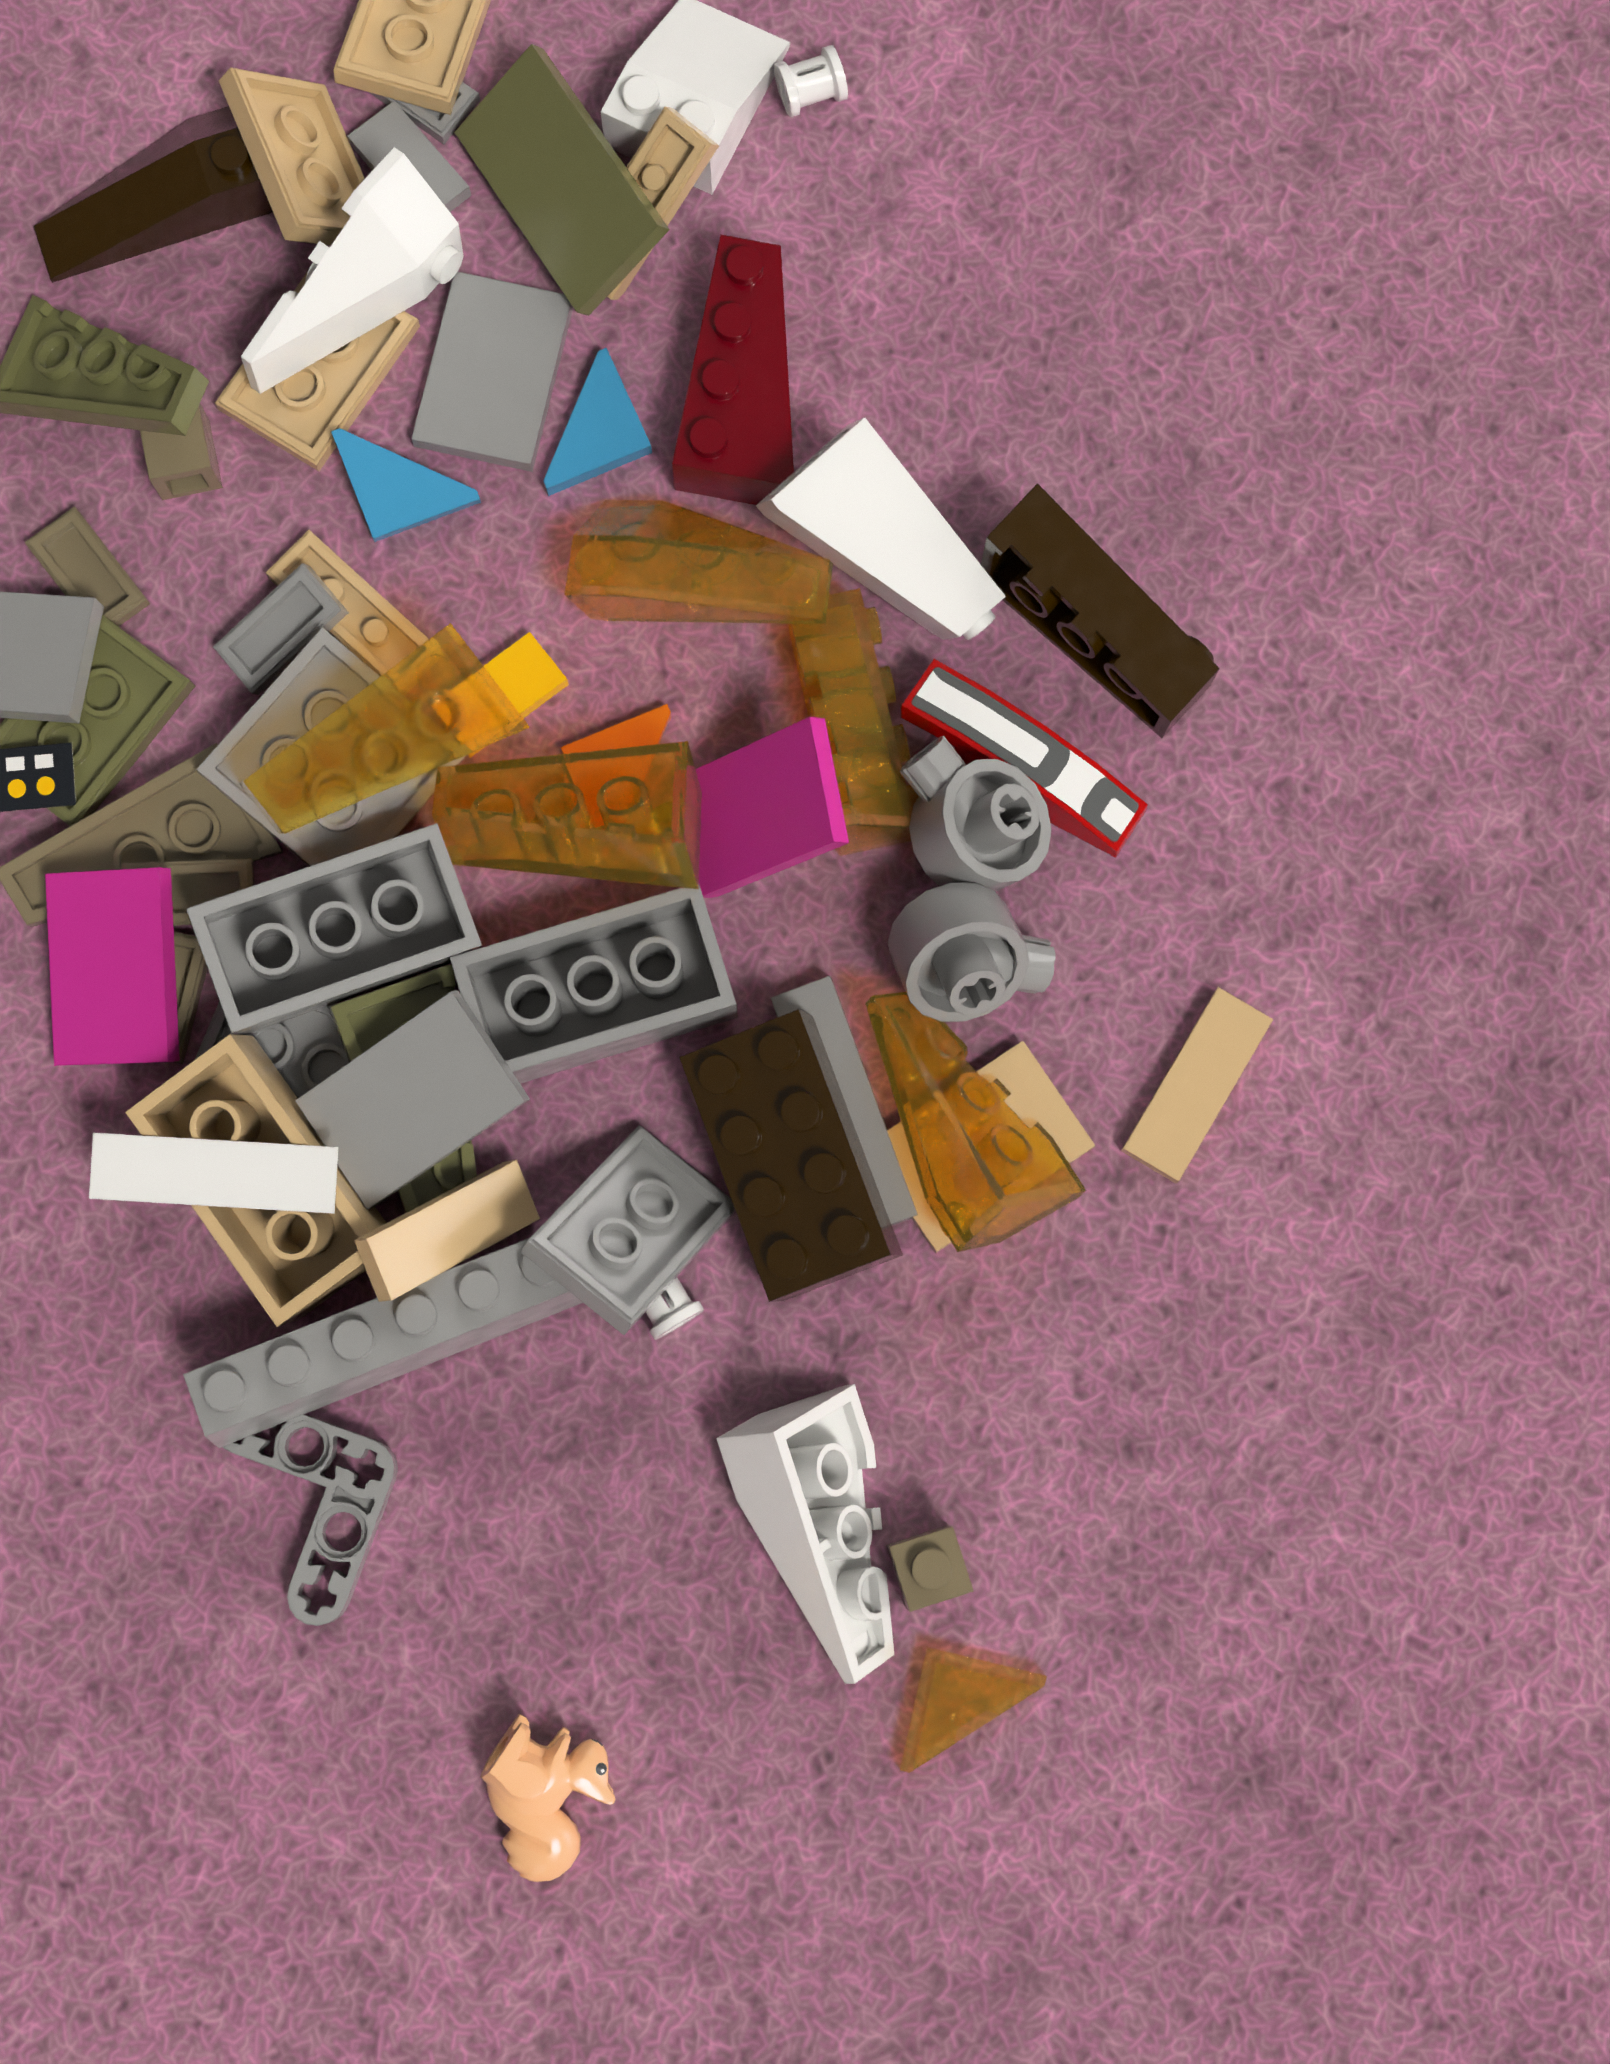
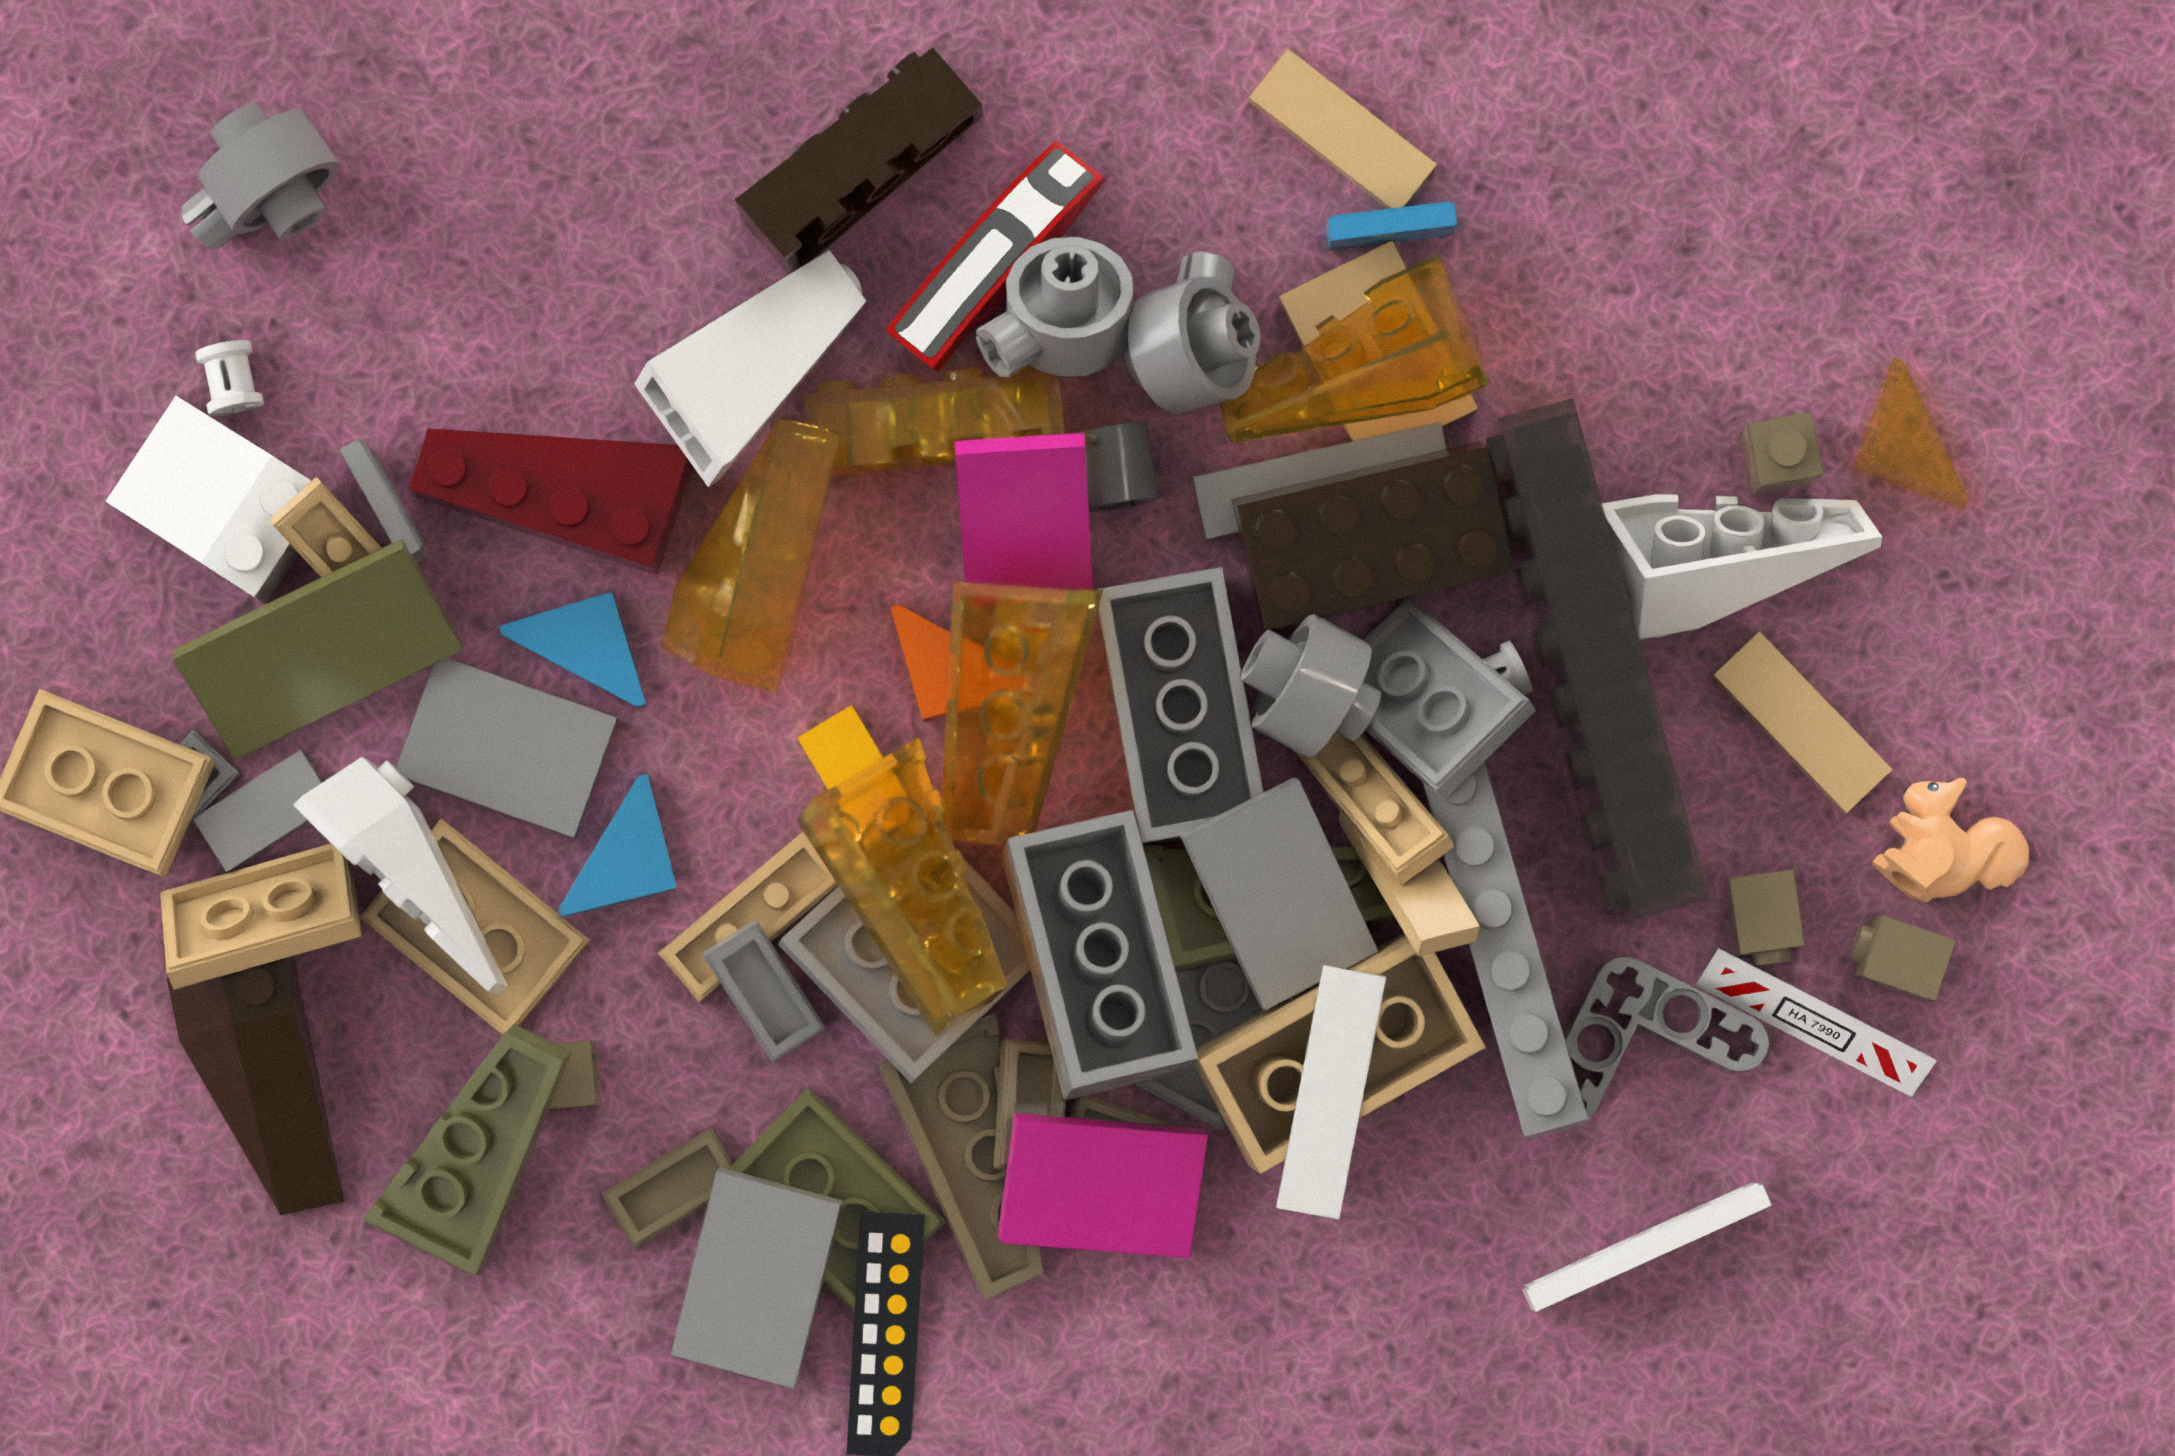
camera: 80 degrees left, 5 degrees up
(99, 1521) = (1645, 1246): none -> white tile
(345, 1673) = (1815, 1022): none -> white sticker
(419, 1755) = (1901, 957): none -> dark tan brick
(448, 1606) = (1765, 916): none -> dark tan brick
(521, 1188) = (1378, 805): none -> tan tile
(626, 1105) = (1311, 685): none -> light grey piece
(655, 1624) = (1801, 723): none -> tan tile
(682, 1397) = (1596, 664): none -> clear smoke brick
(698, 235) = (383, 497): none -> light grey tile
(829, 895) = (1119, 466): none -> dark grey piece
(1003, 76) = (261, 177): none -> light grey piece
(1109, 1140) = (1391, 224): none -> dark azure tile

